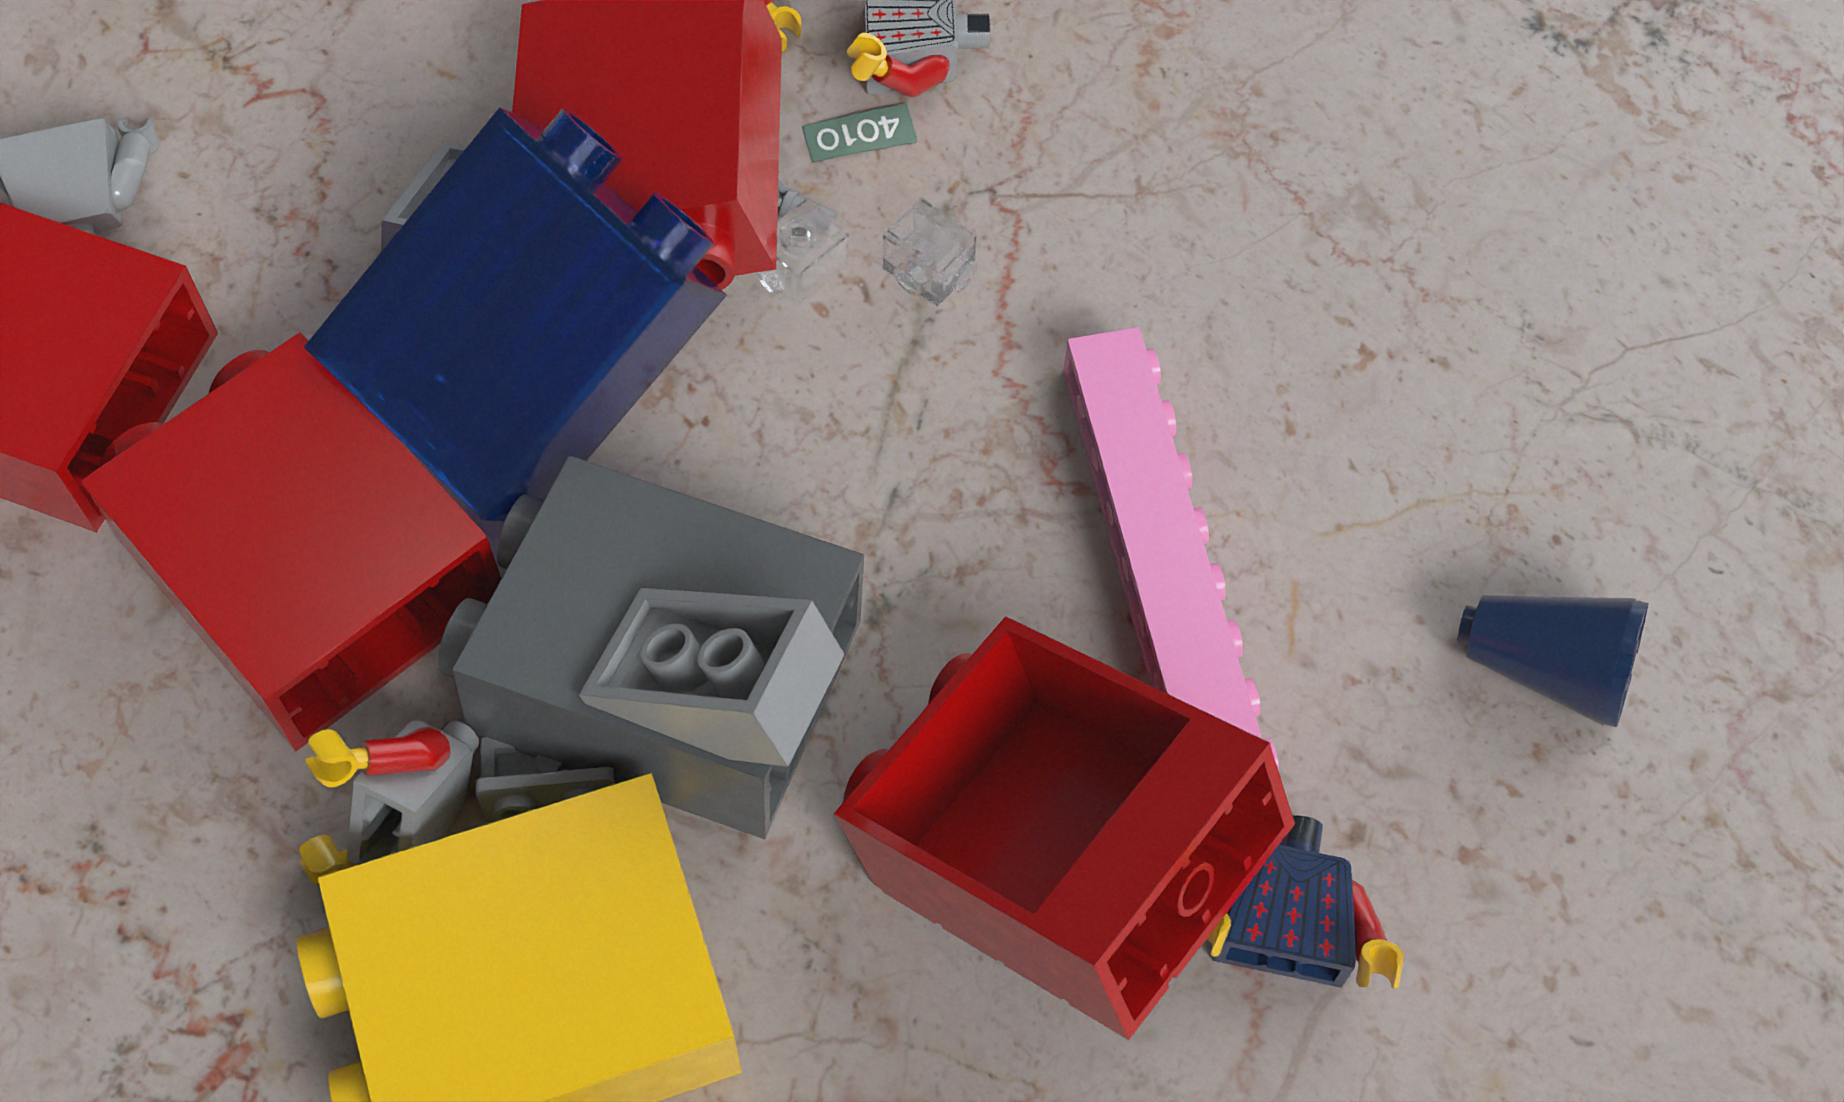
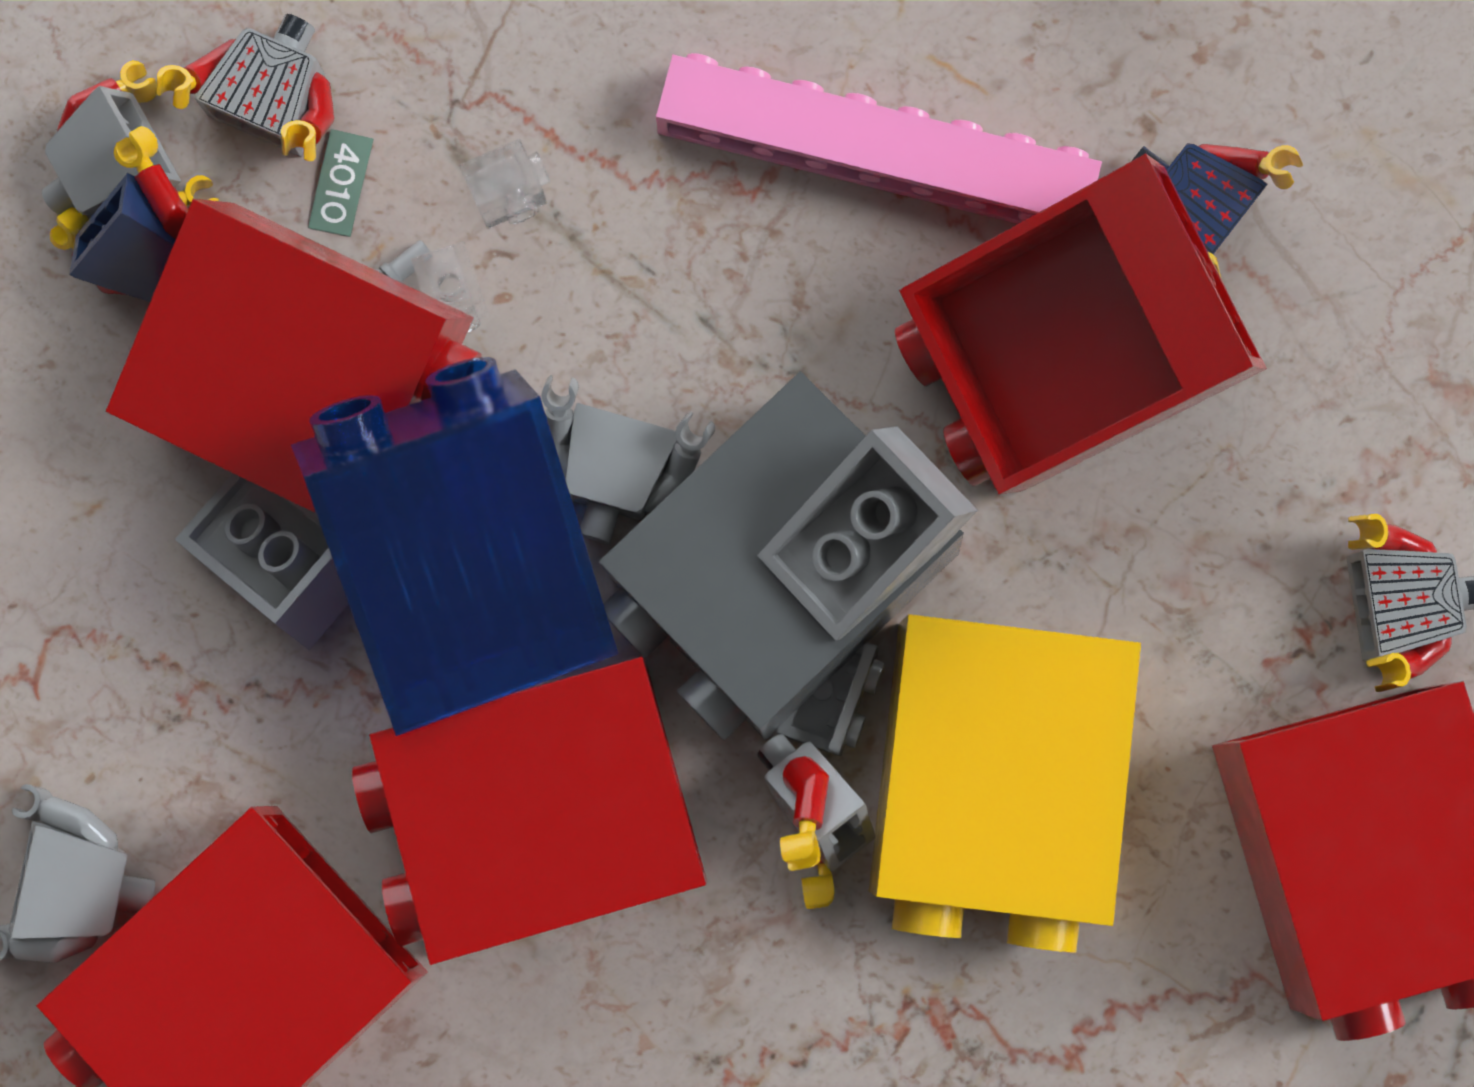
camera: 65 degrees left, 20 degrees up
(700, 441) = (617, 461): none -> light grey torso

